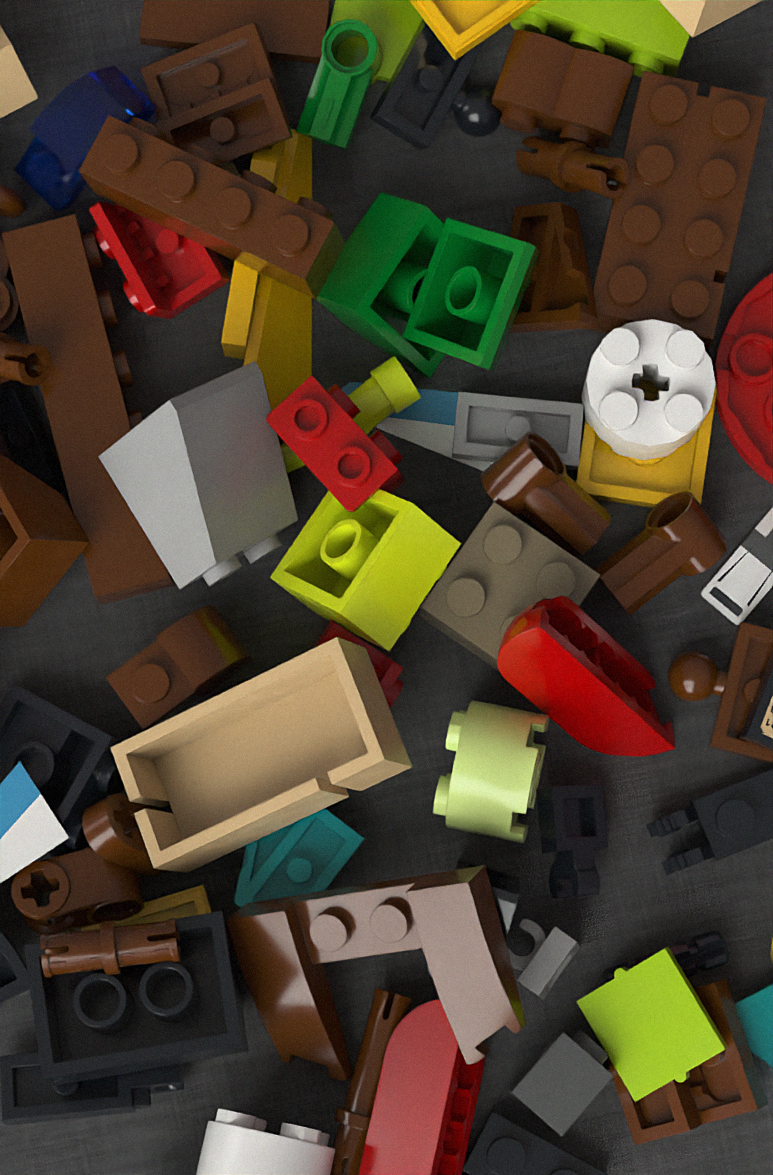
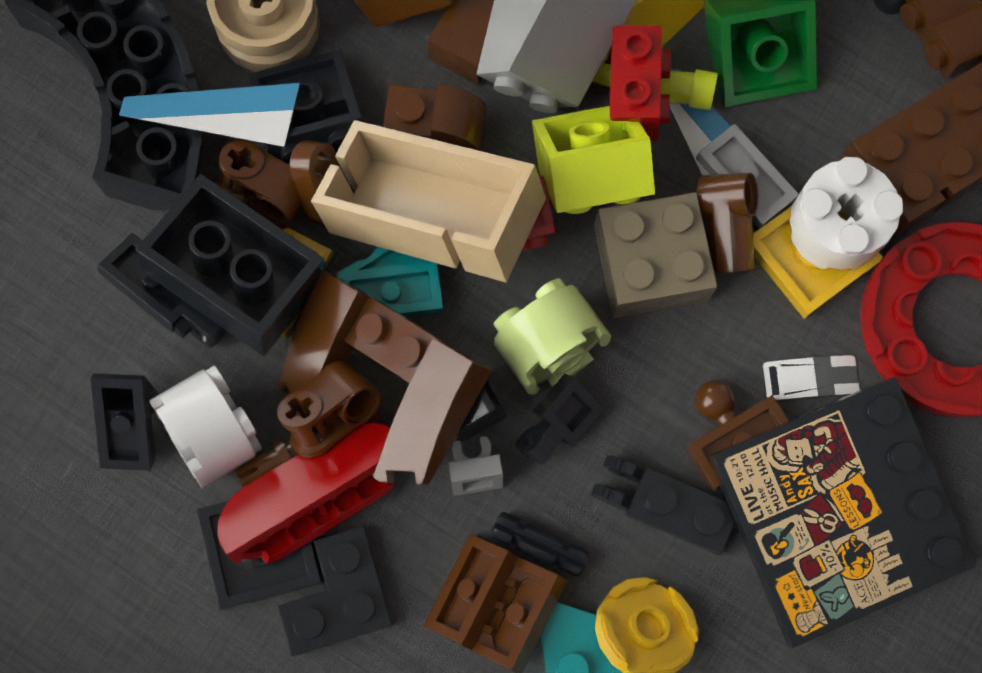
camera: 40 degrees right, 5 degrees down
(110, 947) = (243, 215): reddish brown pin -> none
(359, 1036) = (330, 404): none -> reddish brown piece
(471, 293) = (796, 74): green slope -> none
(560, 283) = (846, 106): reddish brown wing -> none
(563, 1079) = (419, 546): dark grey brick -> none
(573, 167) = (919, 62): reddish brown pin -> none
(583, 680) = (650, 333): red brick -> none
(652, 1024) = (499, 563): lime piece -> none
(675, 543) = (777, 316): reddish brown piece -> none

